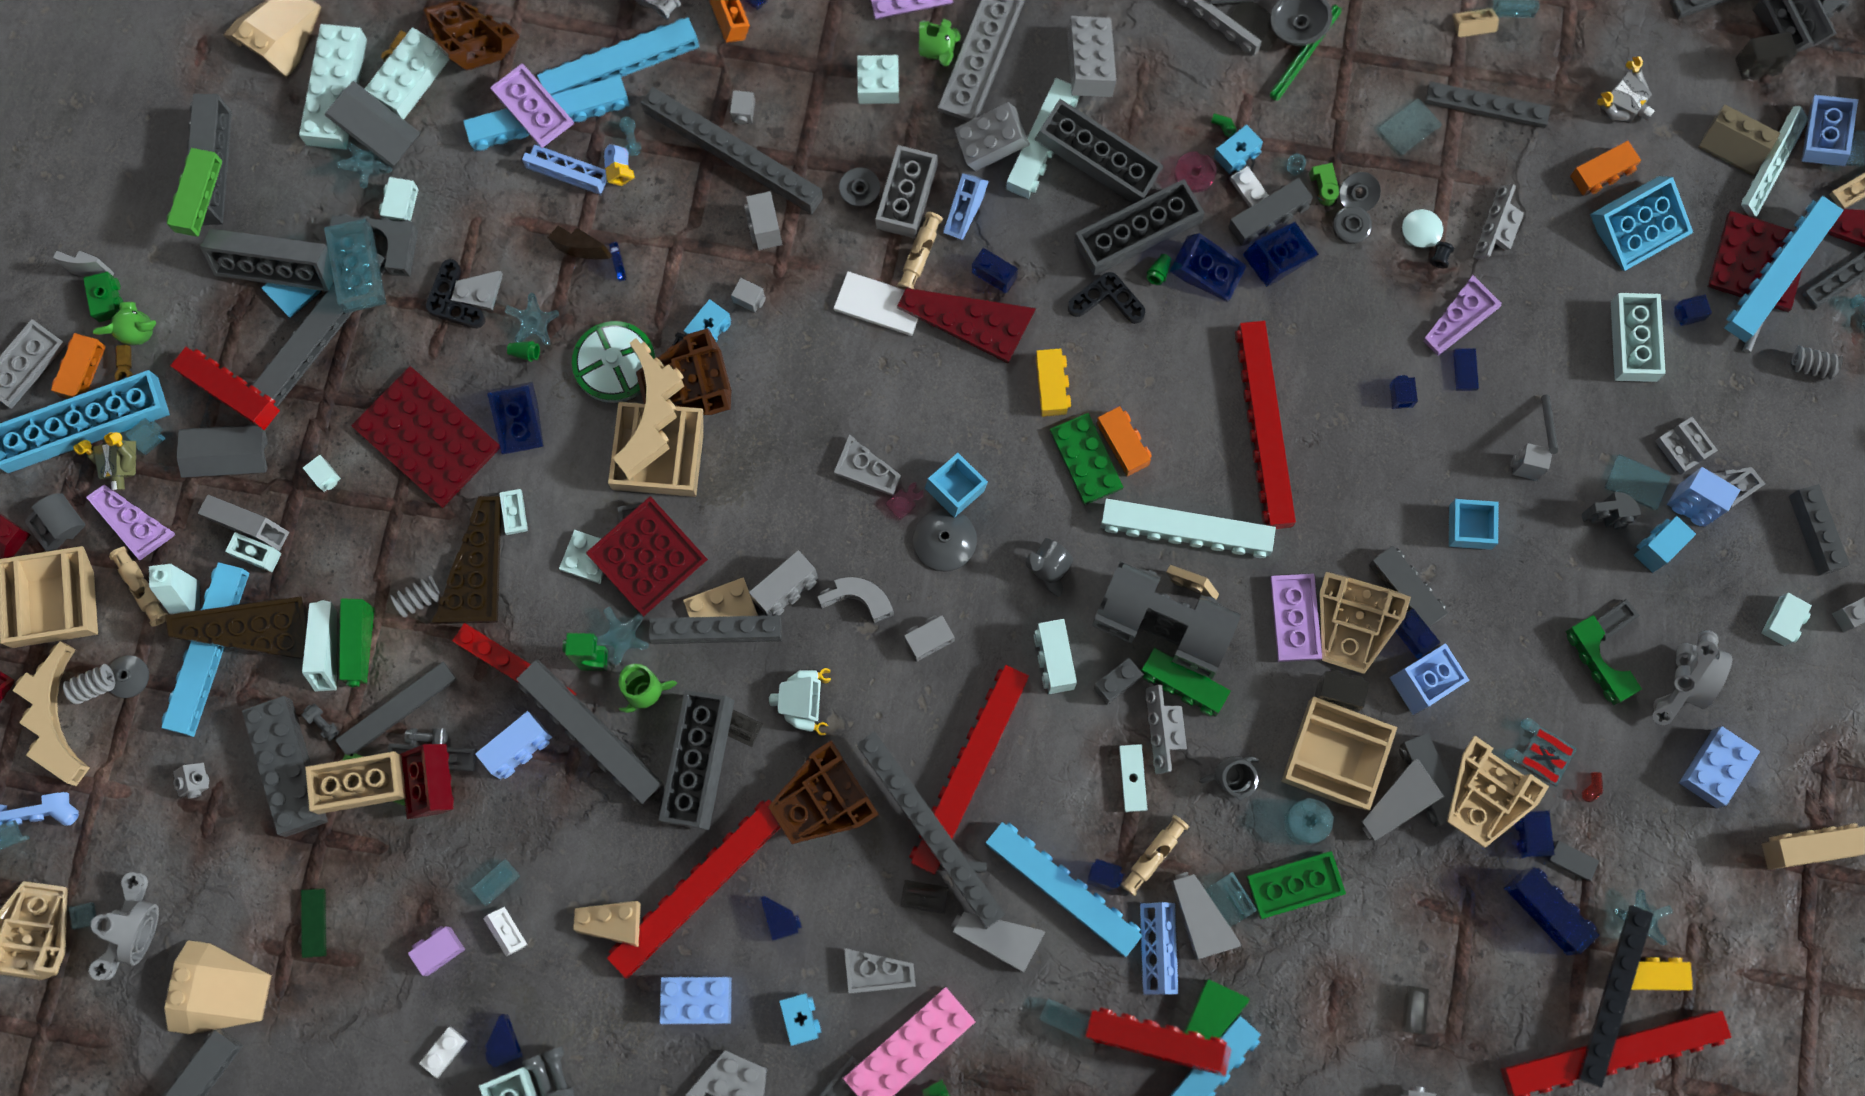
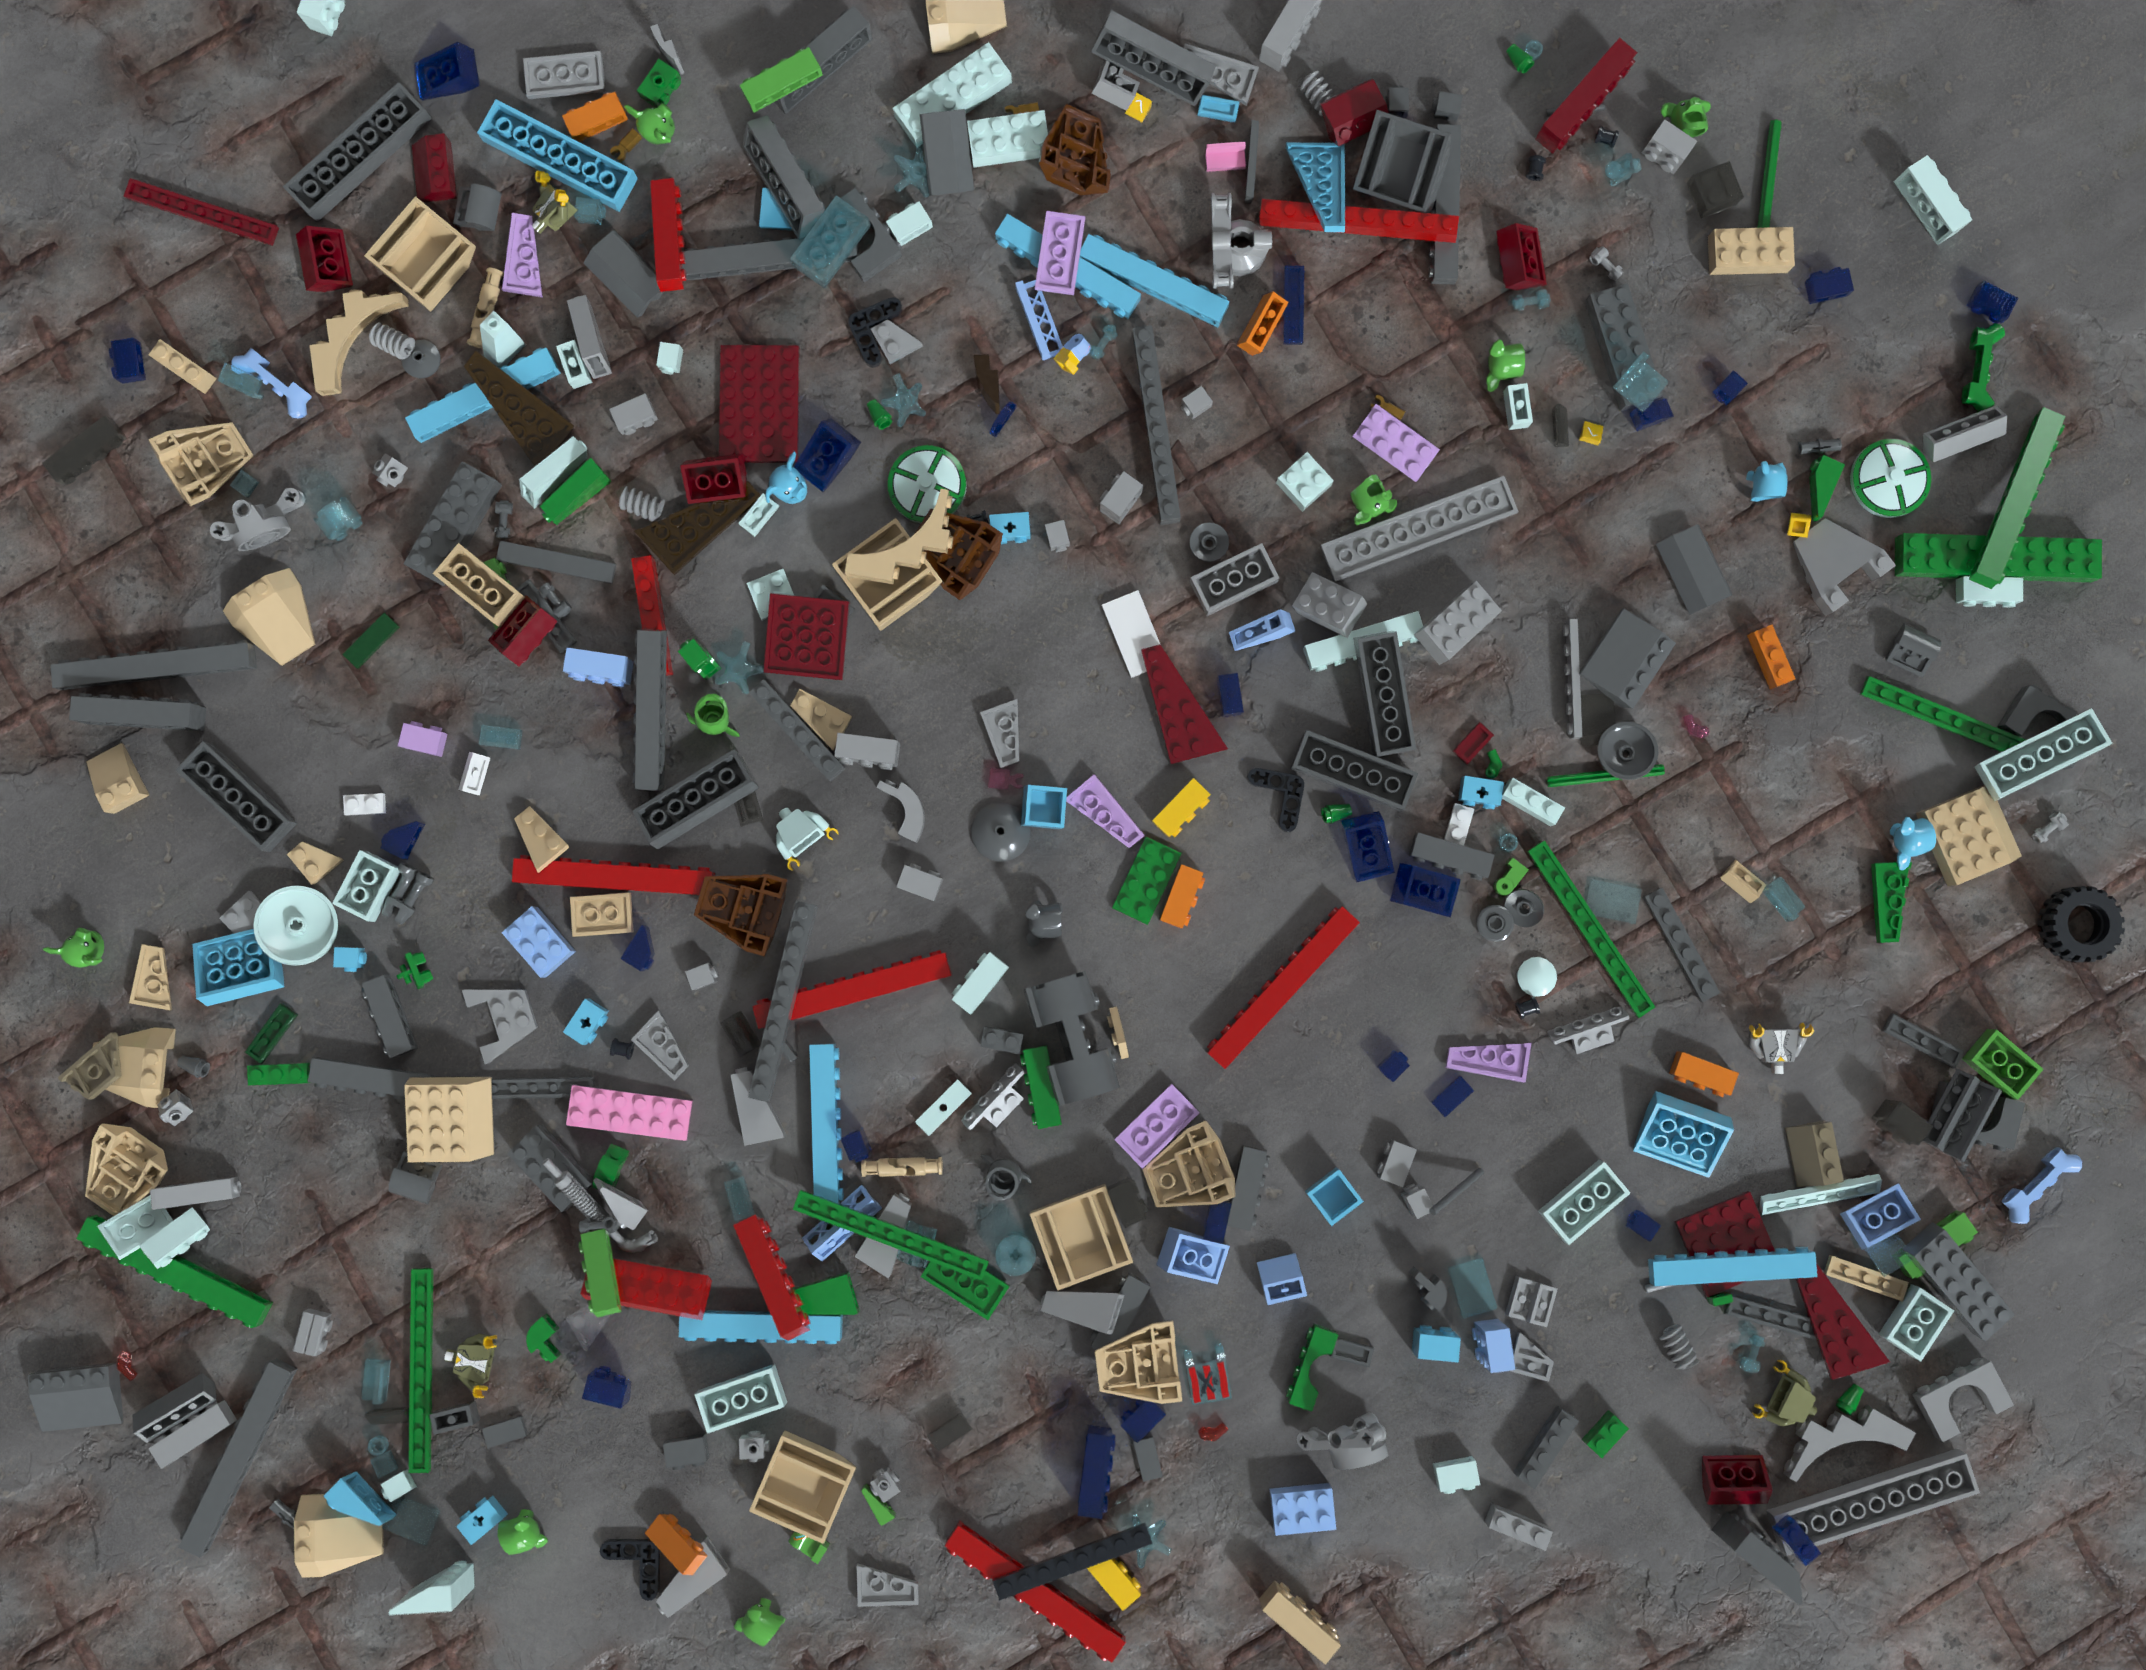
camera: 50 degrees right, 10 degrees up
(188, 858) = (337, 519): none -> clear light blue brick
(339, 541) = (633, 414): none -> light grey brick
(452, 519) = (714, 478): none -> dark red slope
(509, 466) = (787, 483): none -> medium azure piece
(720, 926) = (601, 914): none -> tan plate
(848, 885) = (702, 976): none -> light grey brick
(849, 1008) = (622, 1048): none -> black bush
(920, 249) = (1209, 623): tan piece -> none
(998, 443) = (1100, 806): none -> lavender wing
(1188, 528) = (1156, 995): light aqua brick -> none
(1194, 126) = (1473, 743): none -> dark red tile
(1198, 162) = (1446, 770): clear pink plate -> none
(1205, 910) = (891, 1234): none -> green plate
(1281, 118) = (1532, 802): none -> light aqua brick
(1419, 158) = (1591, 929): none -> green plate
(1485, 454) = (1396, 1163): none -> light grey brick
(1509, 623) = (1281, 1279): none -> light blue slope
(1801, 300) = (1720, 1299): none -> green tile
(1844, 475) = (1605, 1434): none -> green brick

